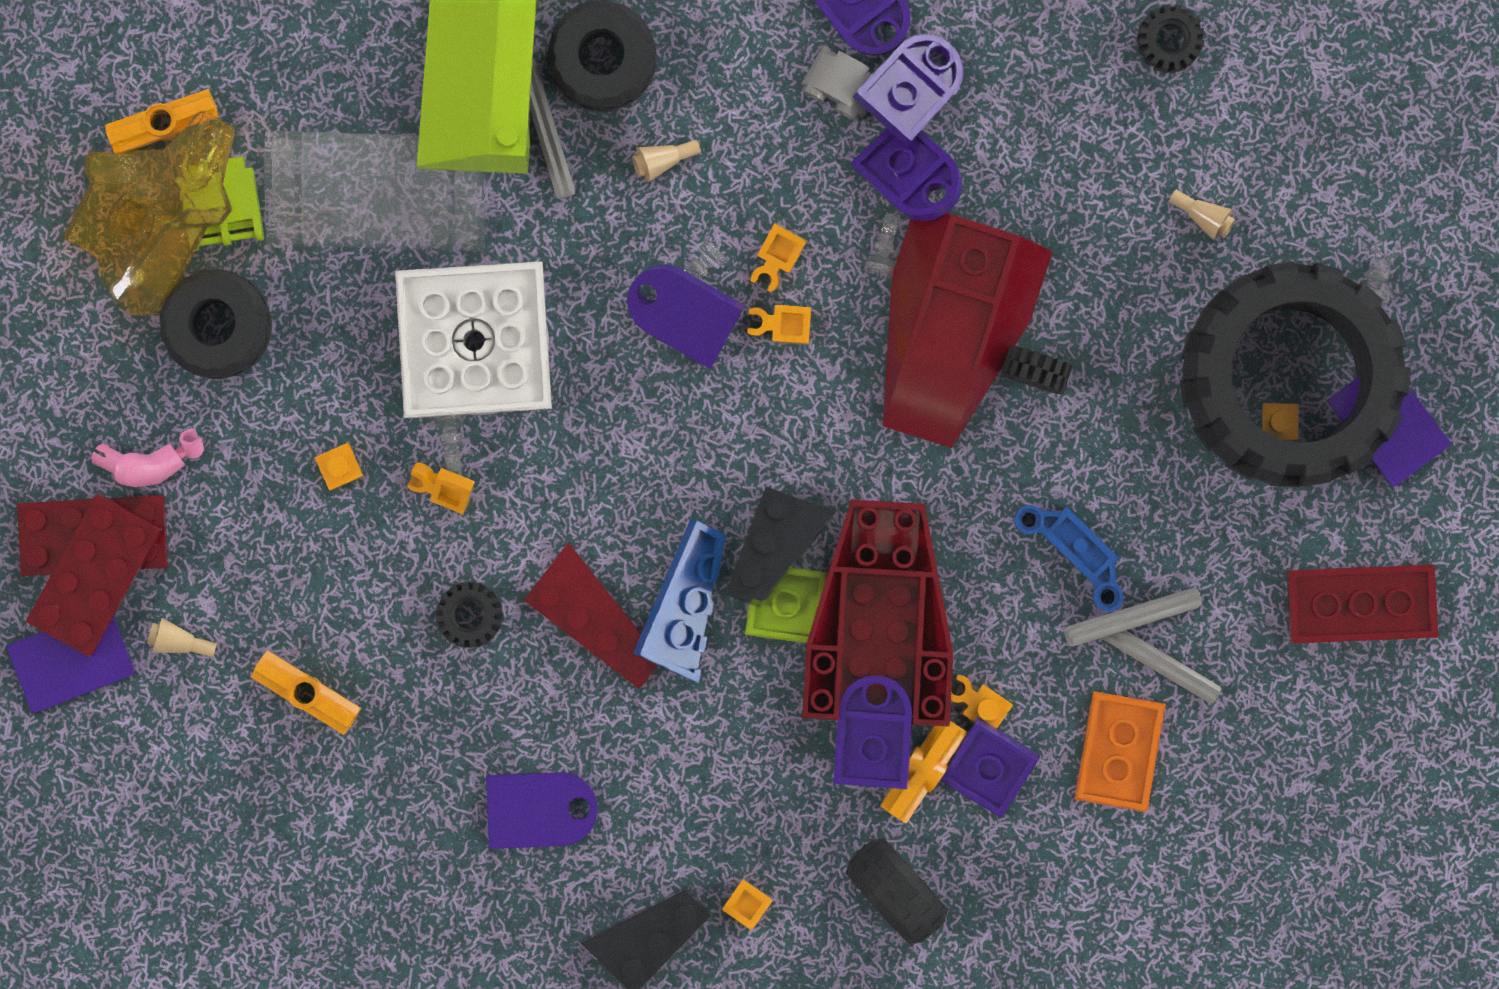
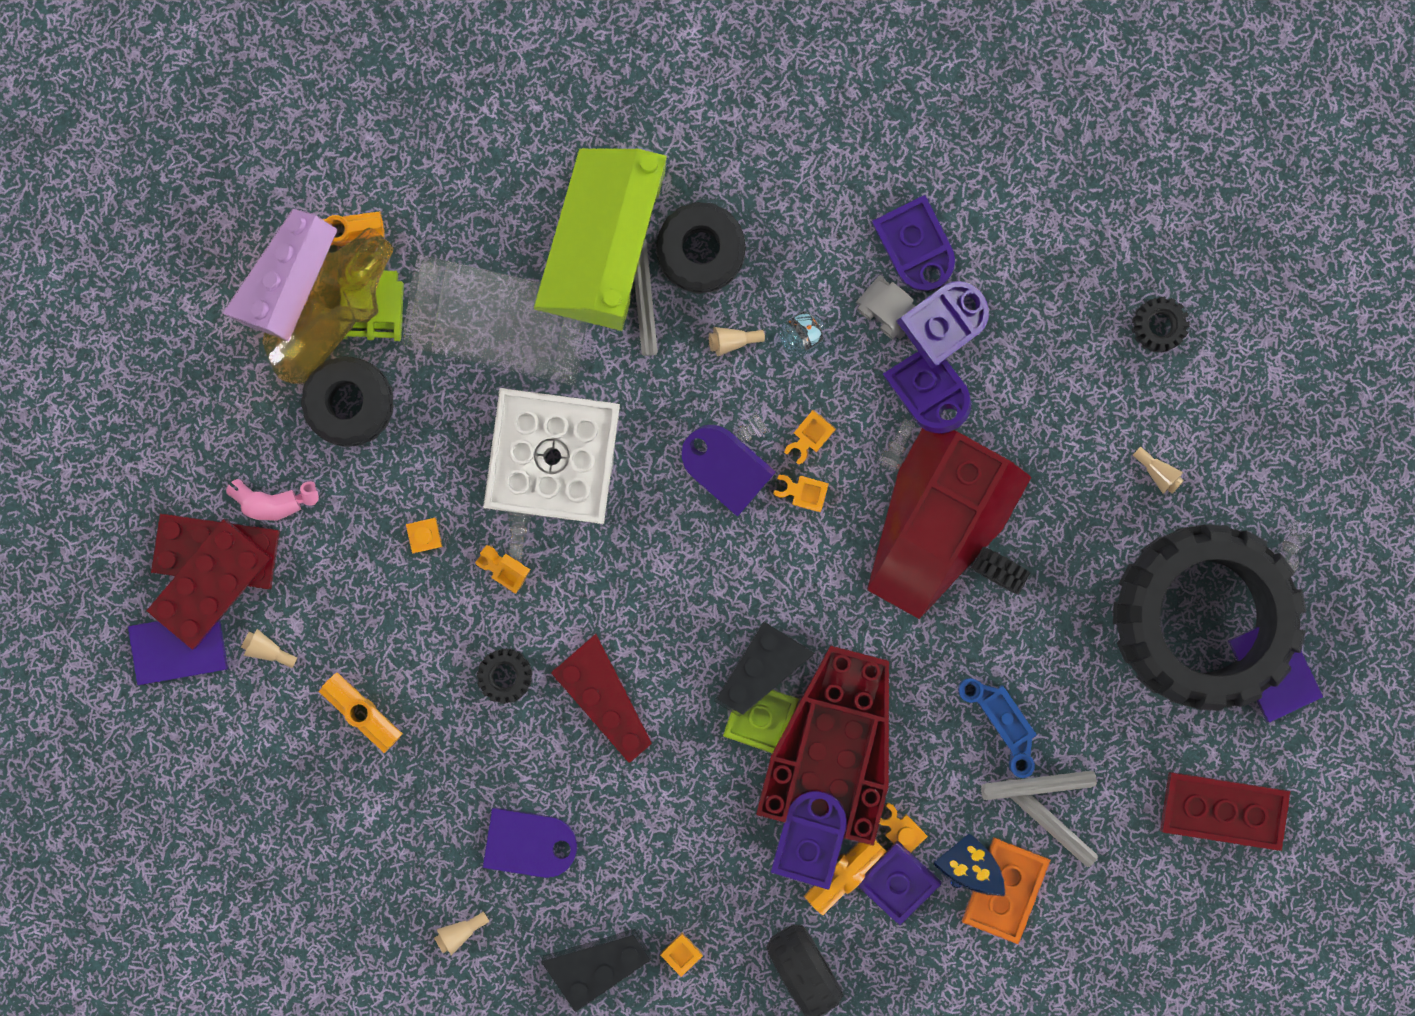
camera: 10 degrees right, 0 degrees up
(112, 188) = (283, 276): none -> lavender wedge
(470, 937) = (454, 935): none -> tan cone
(680, 613) = (671, 714): wing -> none
(743, 134) = (802, 333): none -> head
(1072, 729) = (972, 867): none -> dark blue shield
(1281, 420) = (1188, 649): light orange plate -> none

